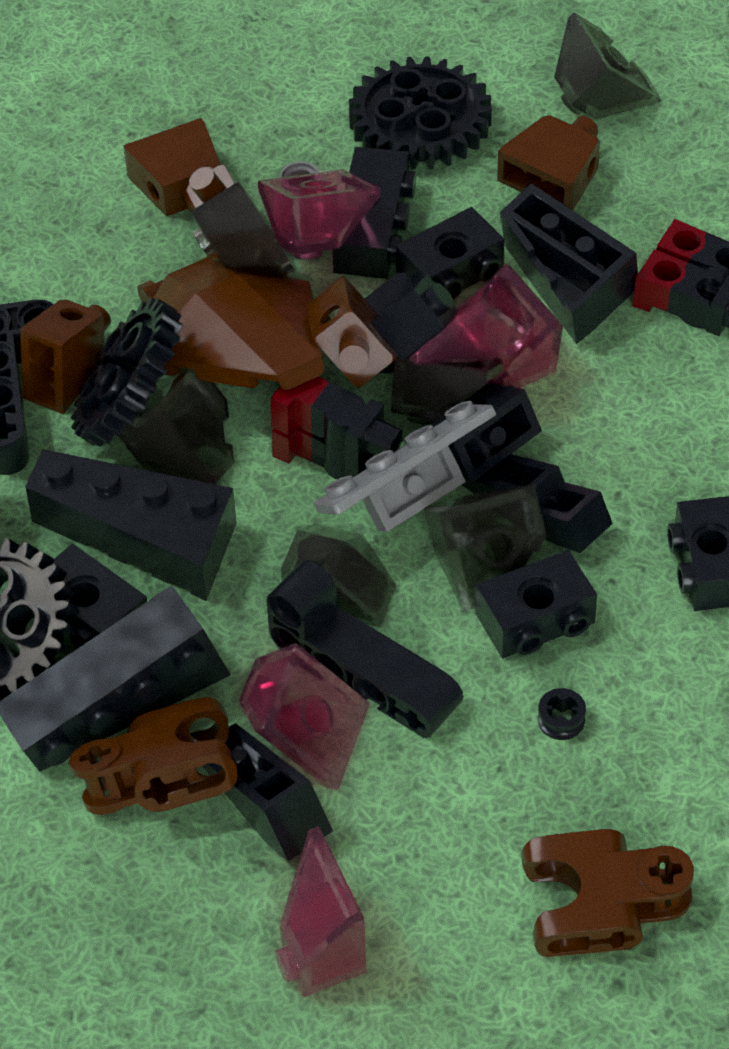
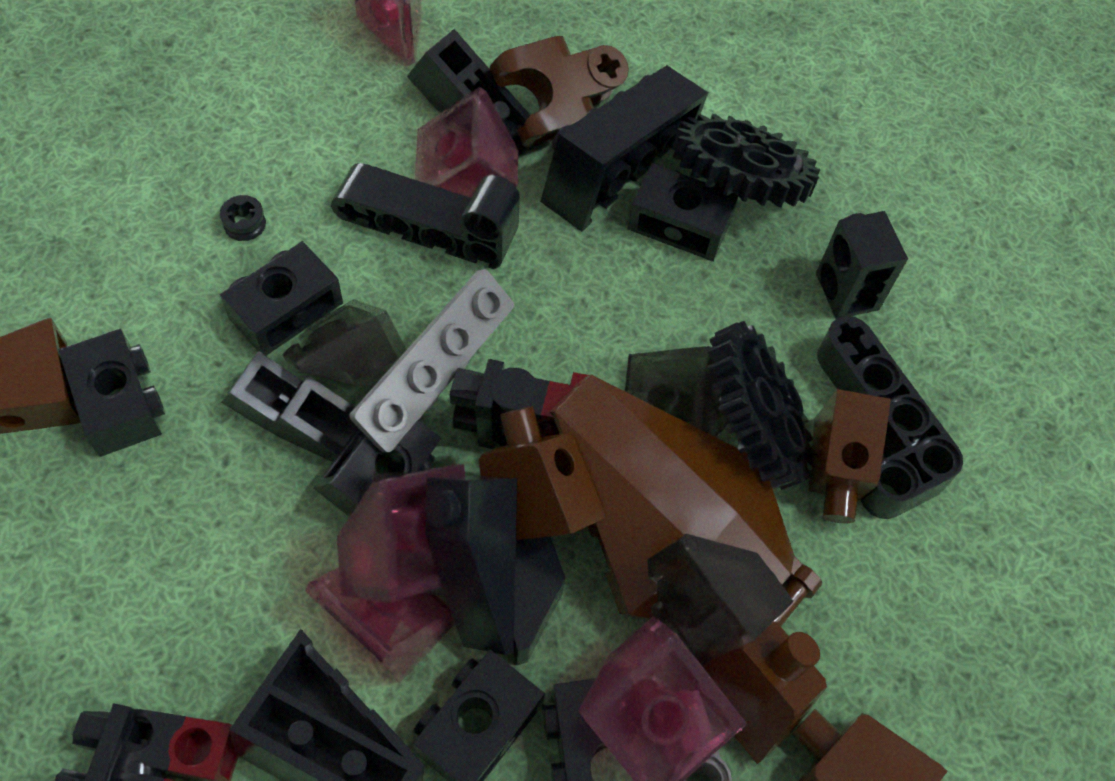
camera: 155 degrees right, 10 degrees up
(136, 515) = (682, 293): black wedge -> none
(359, 576) = (453, 271): clear smoke slope -> none
(613, 889) = (180, 83): reddish brown piece -> none

